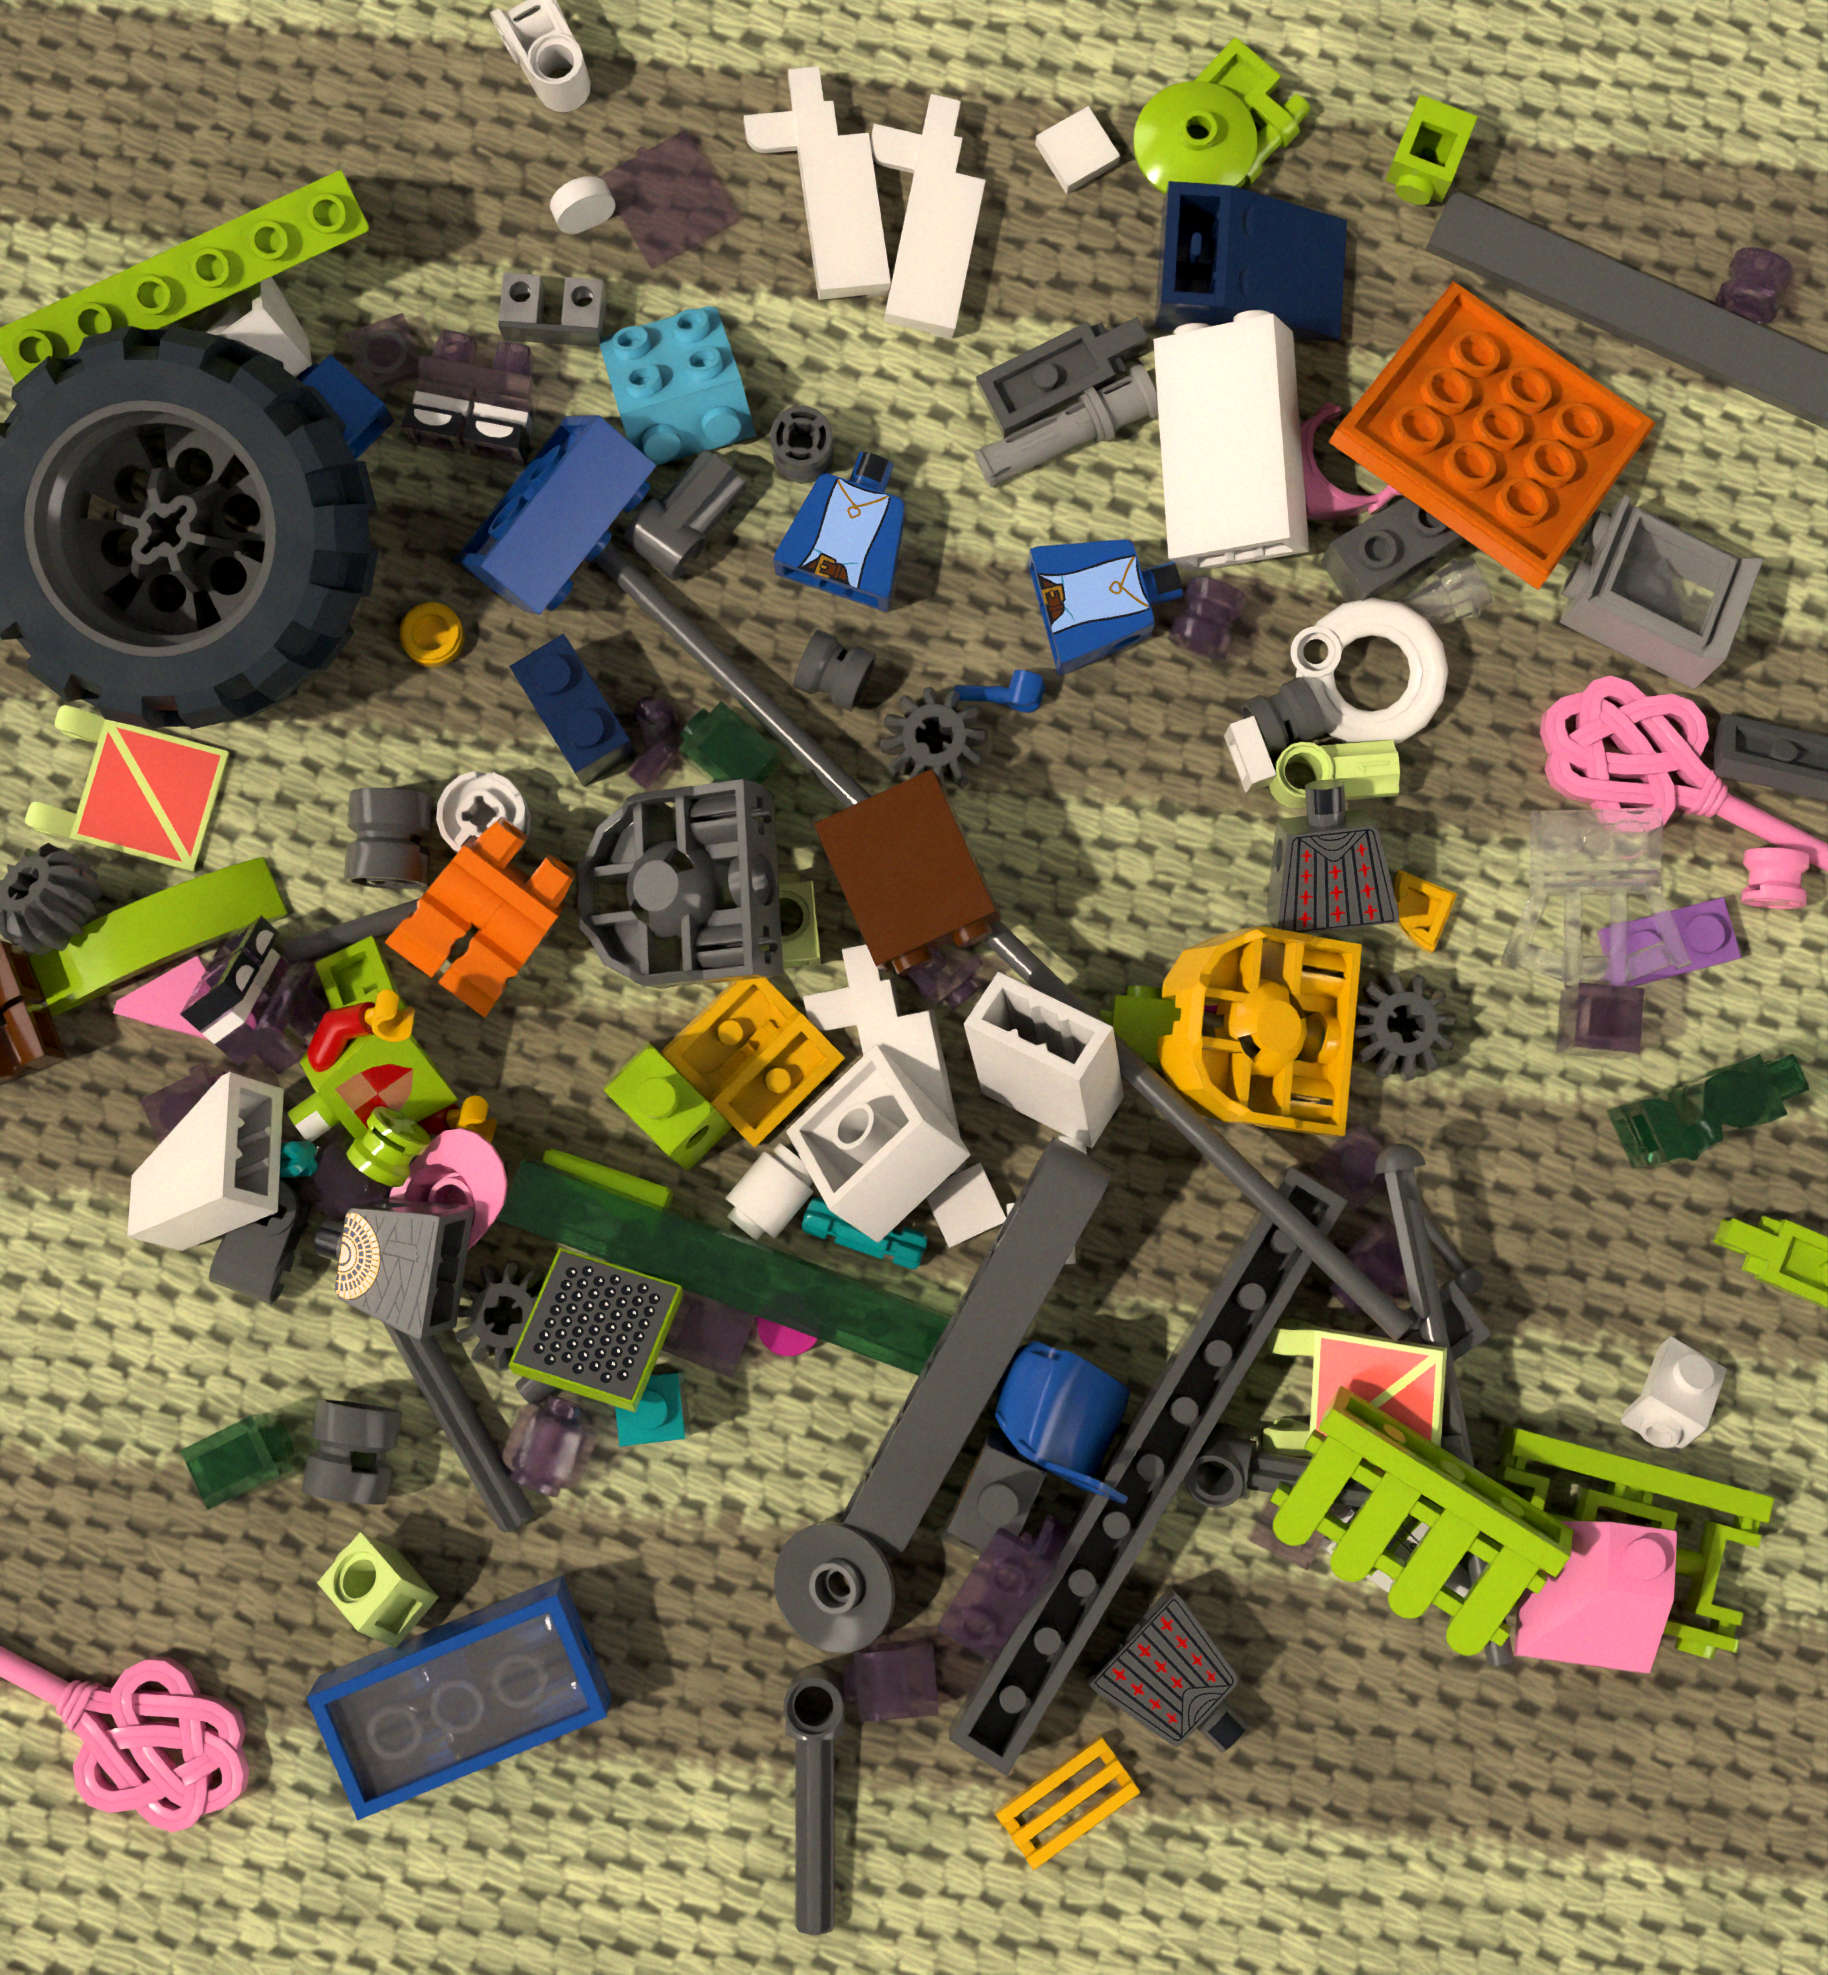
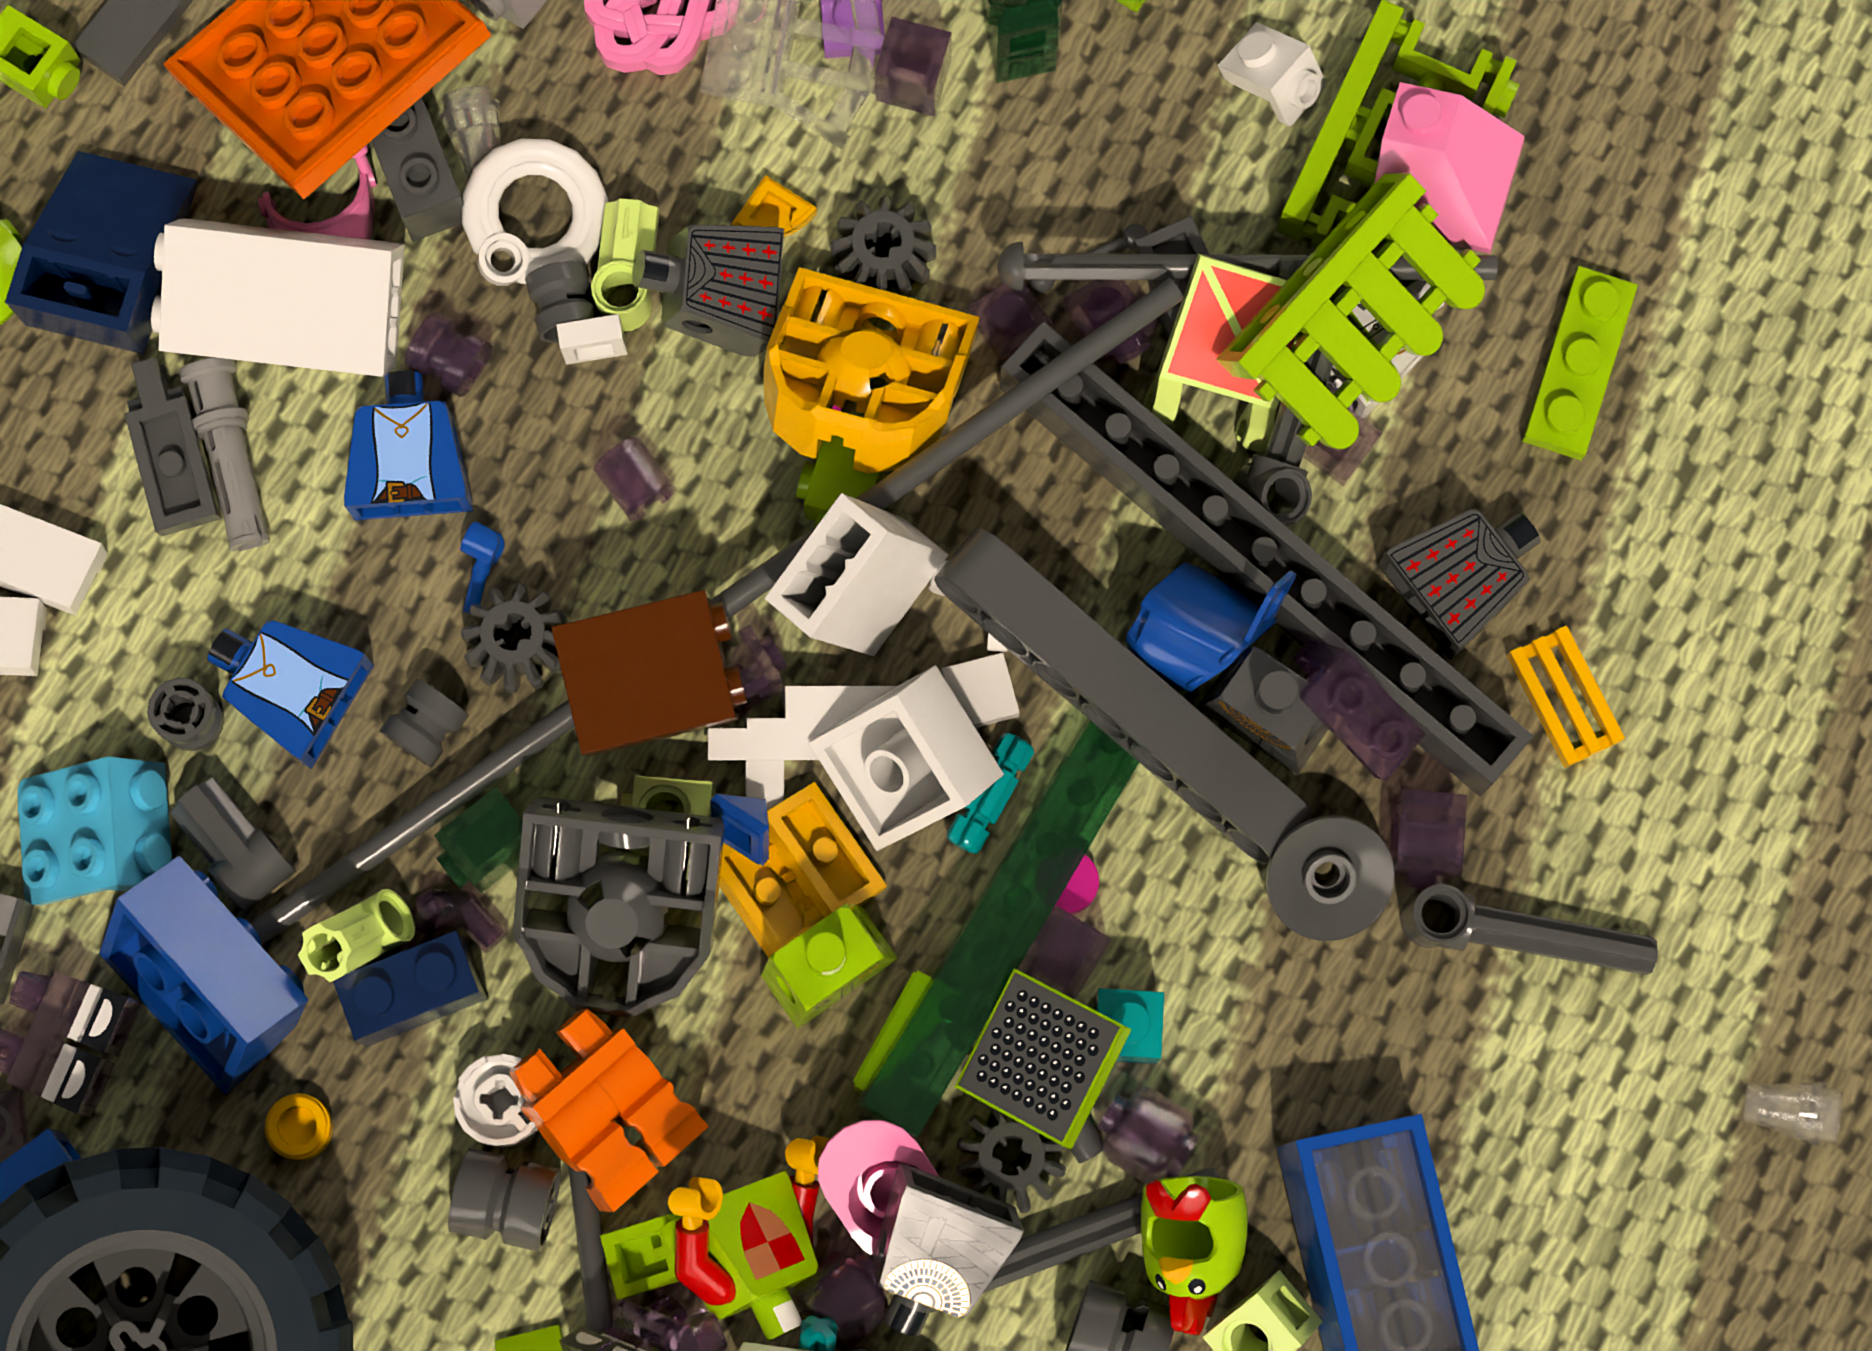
camera: 80 degrees left, 5 degrees down
(388, 1146) = (823, 1239): lime wheel -> none
(446, 1507) = (1193, 1243): none -> lime piece
(609, 648) = (357, 935): none -> yellowish green piece
(770, 1193) = (935, 875): white brick -> none
(785, 996) = (744, 825): none -> blue slope
(1116, 823) = (633, 477): none -> beam
(1424, 1767) = (1580, 363): none -> lime plate

